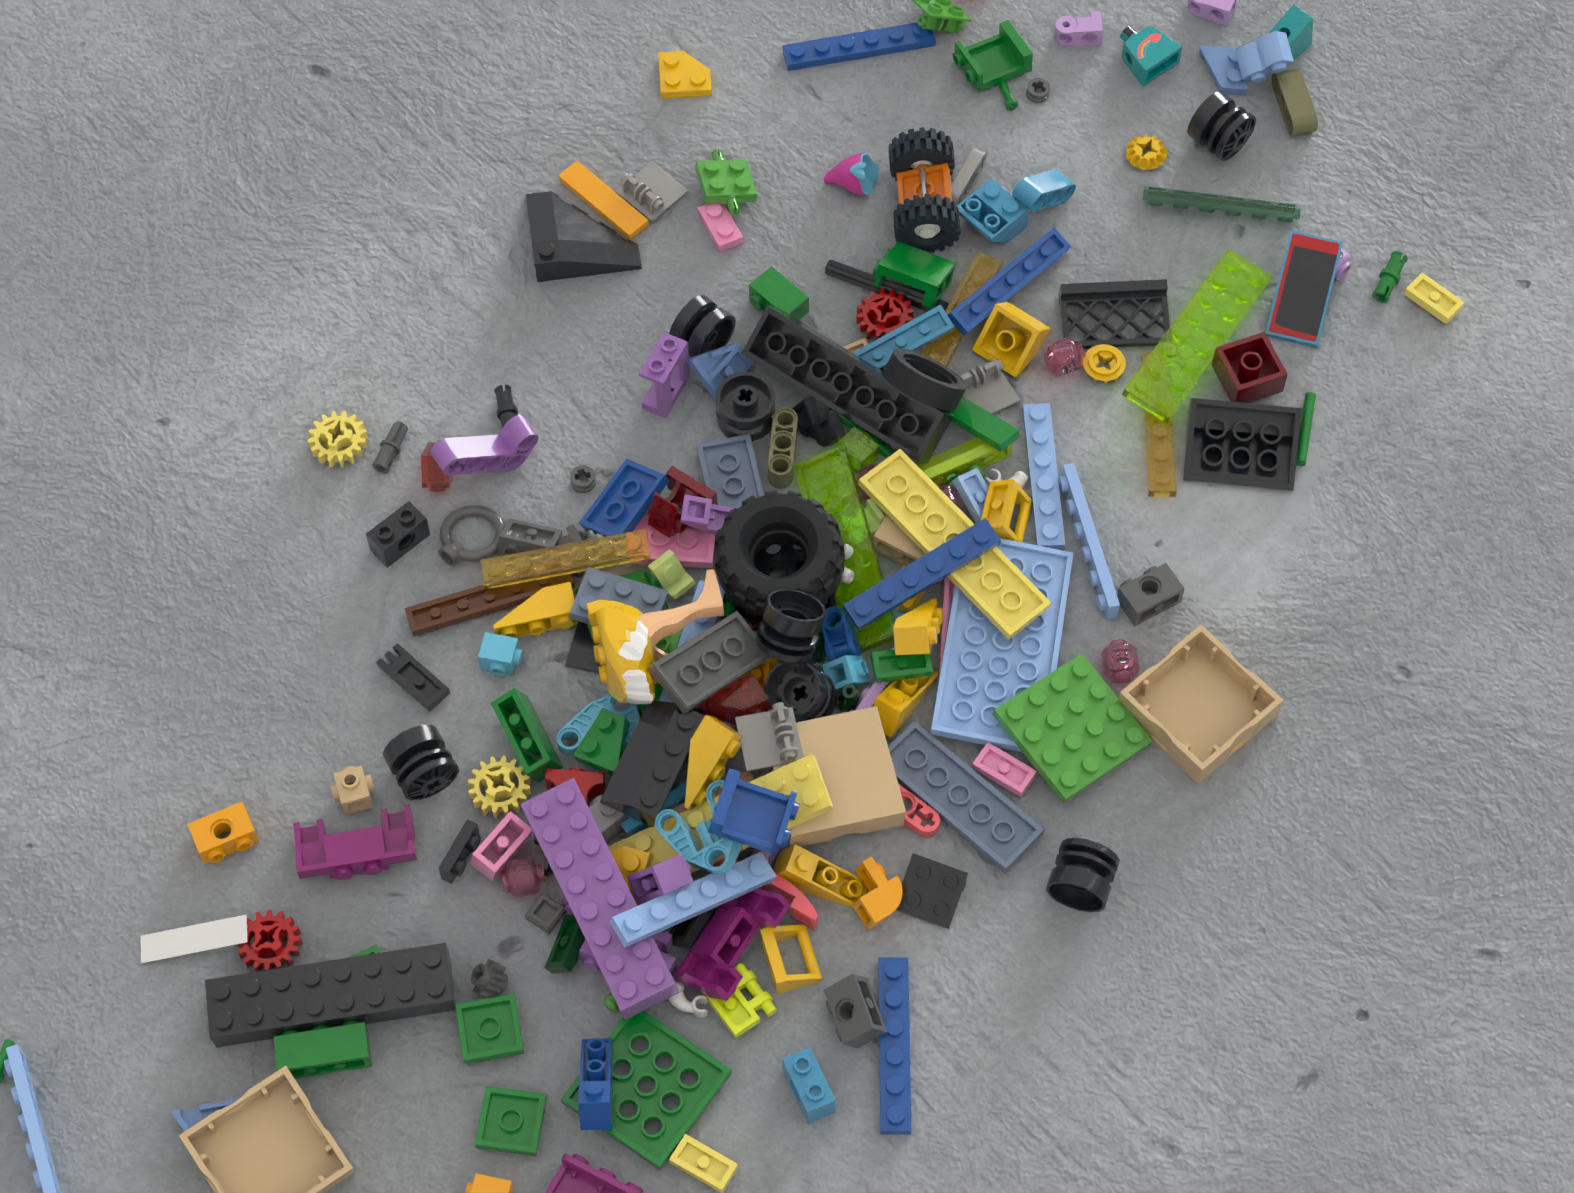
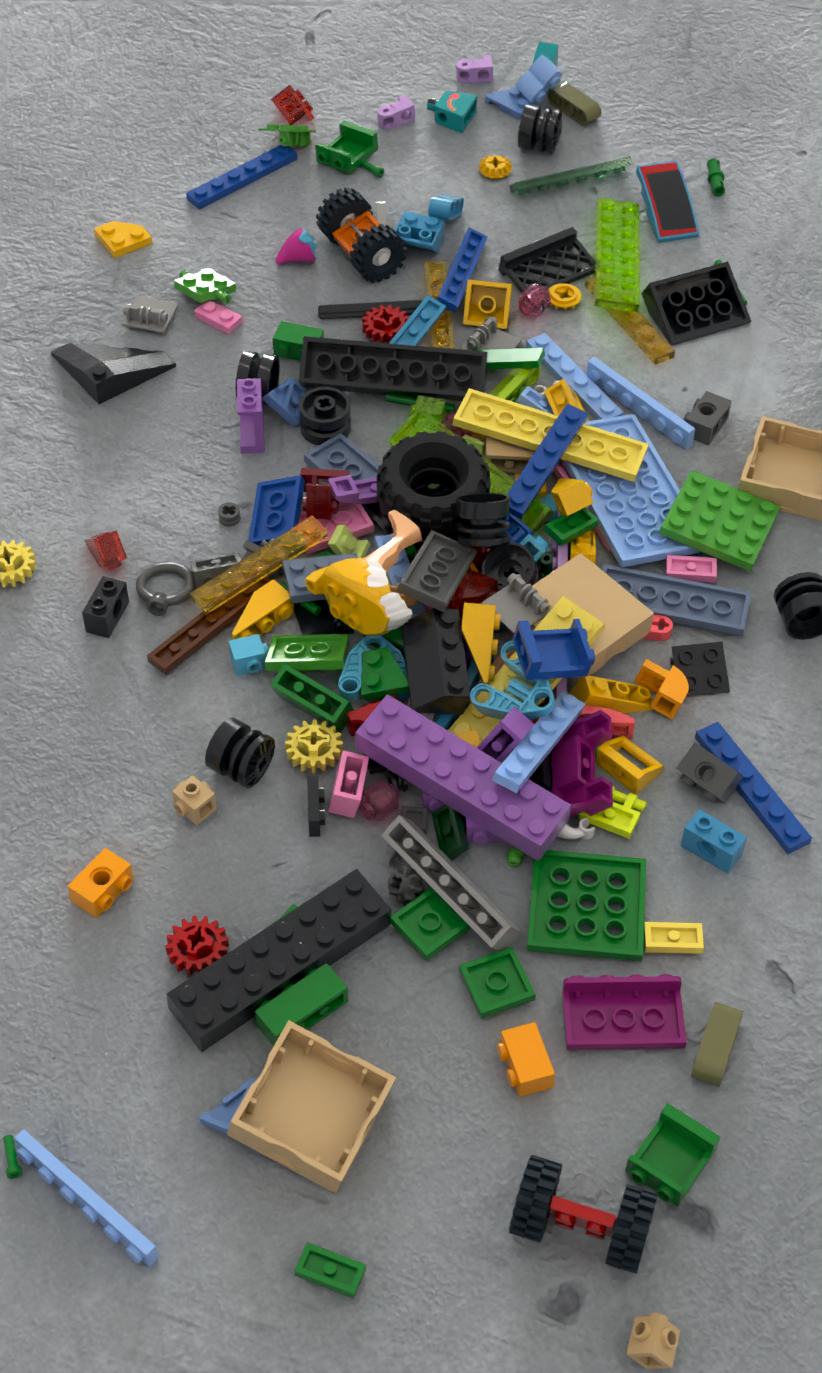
camera: 30 degrees left, 10 degrees down
(193, 938) = (127, 975): white sticker -> none
(355, 851) = (226, 843): magenta bracket -> none
(390, 447) = (56, 554): dark grey axle -> none
(414, 678) = (186, 701): black hinge -> none
(487, 452) = (147, 519): medium lavender beam -> none
(506, 407) = (137, 493): black pin -> none
(529, 1001) = (451, 884): none -> light grey brick
(554, 681) = (308, 652): none -> bright green plate
(595, 1084) = (553, 917): blue slope -> none
(603, 200) = (115, 333): light orange tile -> none
(782, 458) = (370, 431): olive beam -> none
(824, 429) = (382, 409): black tile -> none
(917, 270) = (390, 283): green panel -> none
(924, 379) = (454, 337): black tyre -> none
(1033, 85) = (391, 158): dark grey bush -> none
(1120, 661) = (719, 466): clear pink head -> none
(1249, 369) = (668, 256): dark red brick -> none
(1434, 298) = (754, 178): light yellow plate -> none

